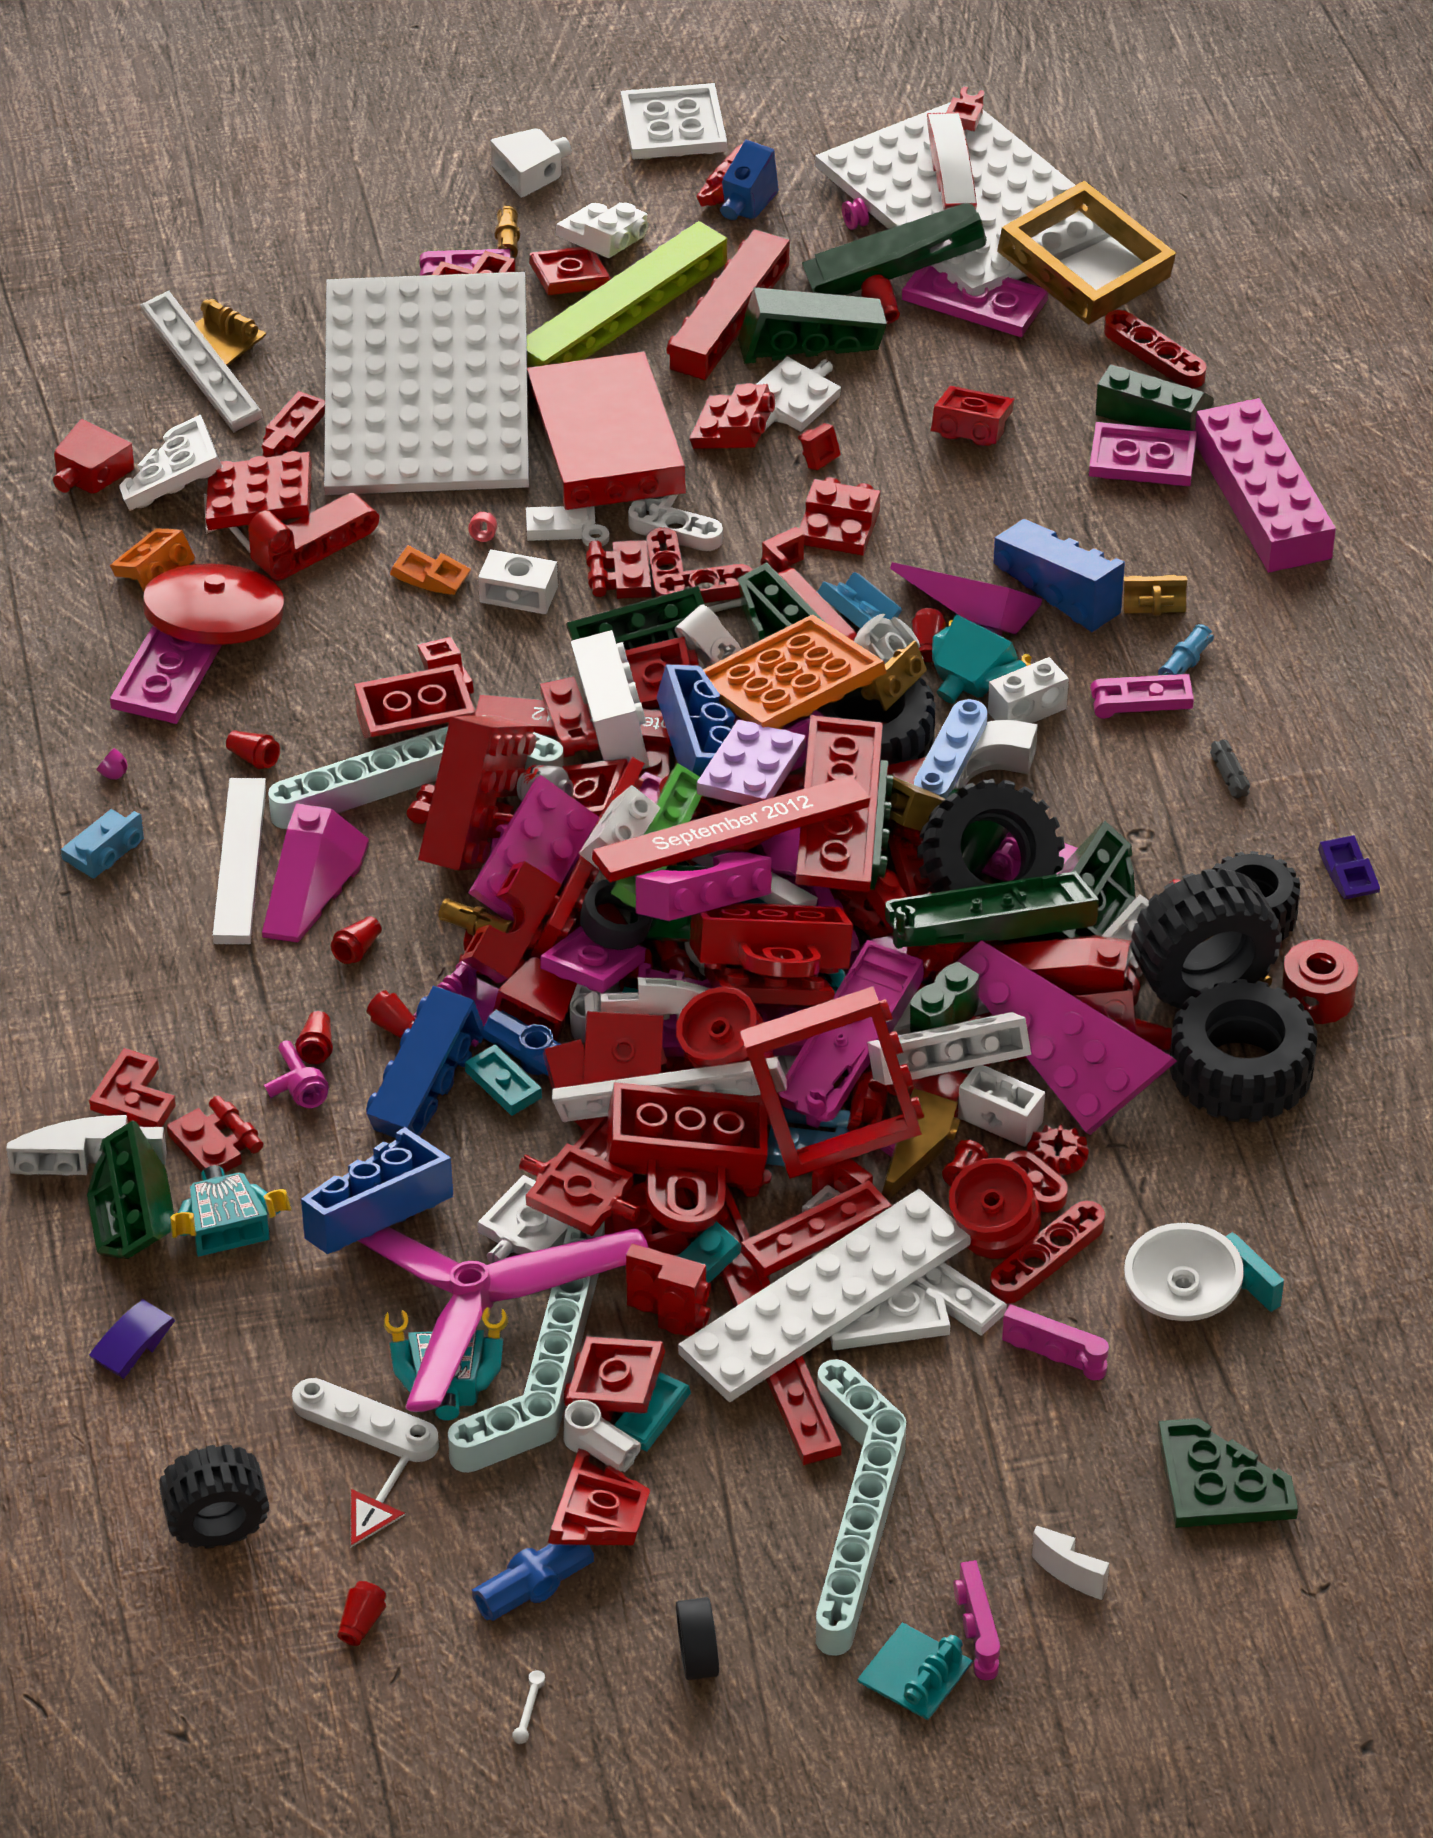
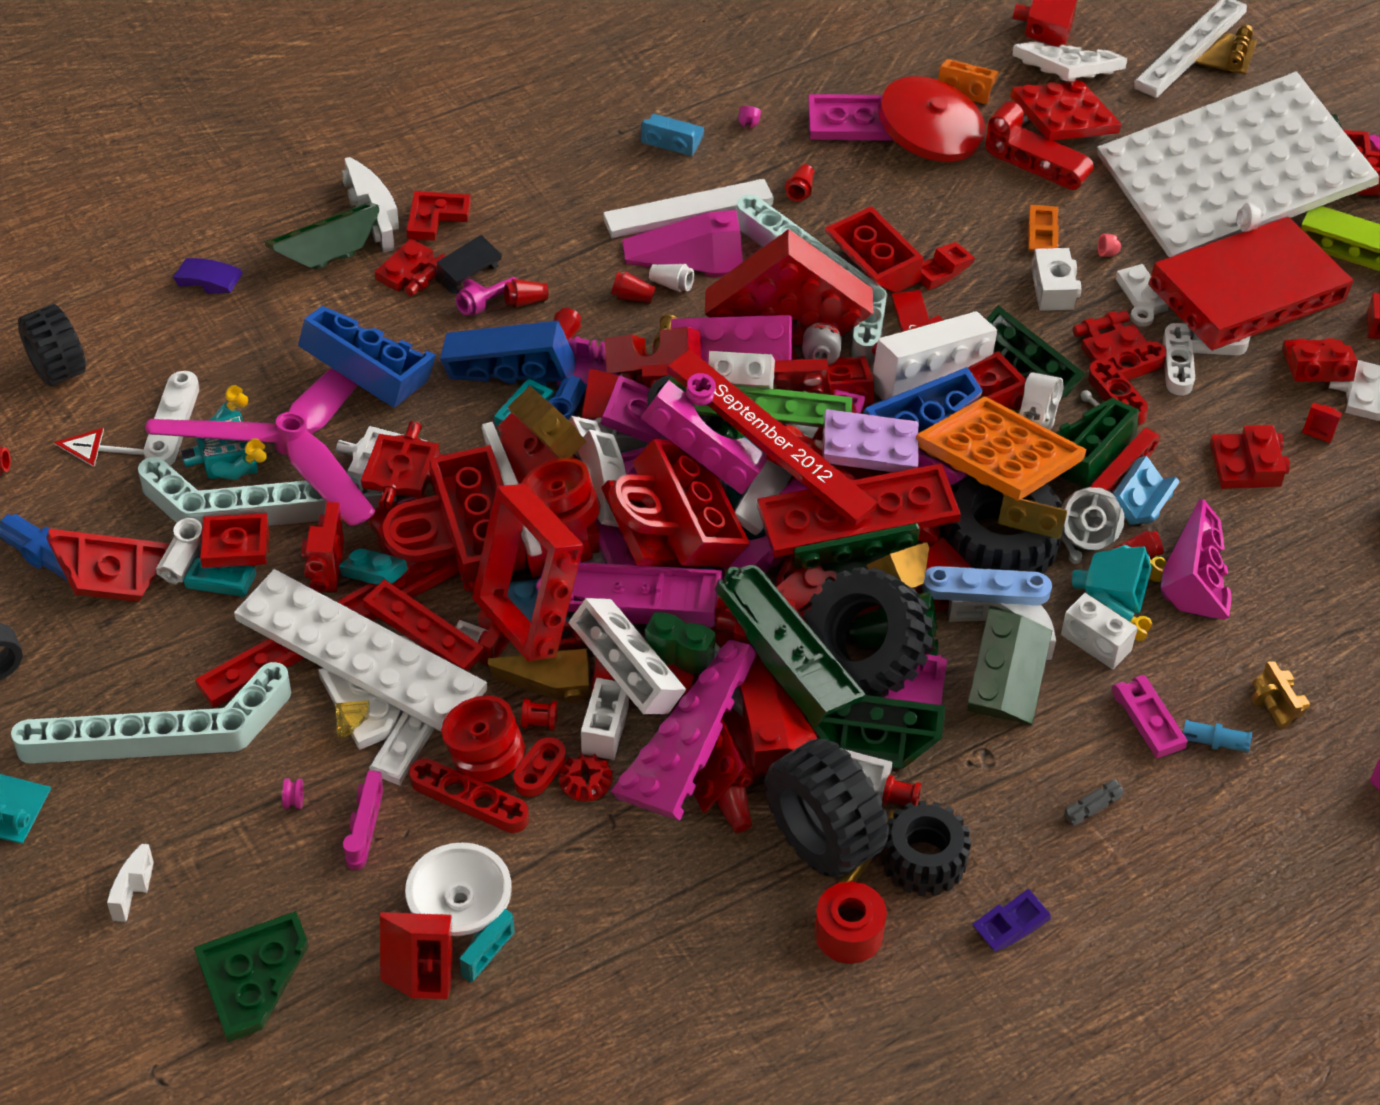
camera: 70 degrees right, 5 degrees up
(227, 1212) = (331, 283): torso -> none
(245, 1077) = (466, 262): none -> black hinge
(292, 424) = (1148, 110): red hinge -> none
(354, 898) = (673, 276): none -> white cone
(532, 384) = (1248, 217): none -> white plate
(616, 1015) = (547, 423): none -> pearl gold slope
(668, 854) = (696, 382): none -> dark pink bush
(783, 549) = (1179, 428): red bracket -> none
(918, 1319) = (350, 716): none -> clear yellow tile
(978, 1620) = (56, 834): dark pink plate -> none
(996, 1398) = (292, 793): none -> dark pink bush
(1054, 774) = (1009, 667): none -> dark green slope
(1062, 573) = (1259, 619): blue wedge -> none
(1243, 1085) = (725, 915): black tyre -> none
(1261, 1316) = (416, 953): none -> red slope

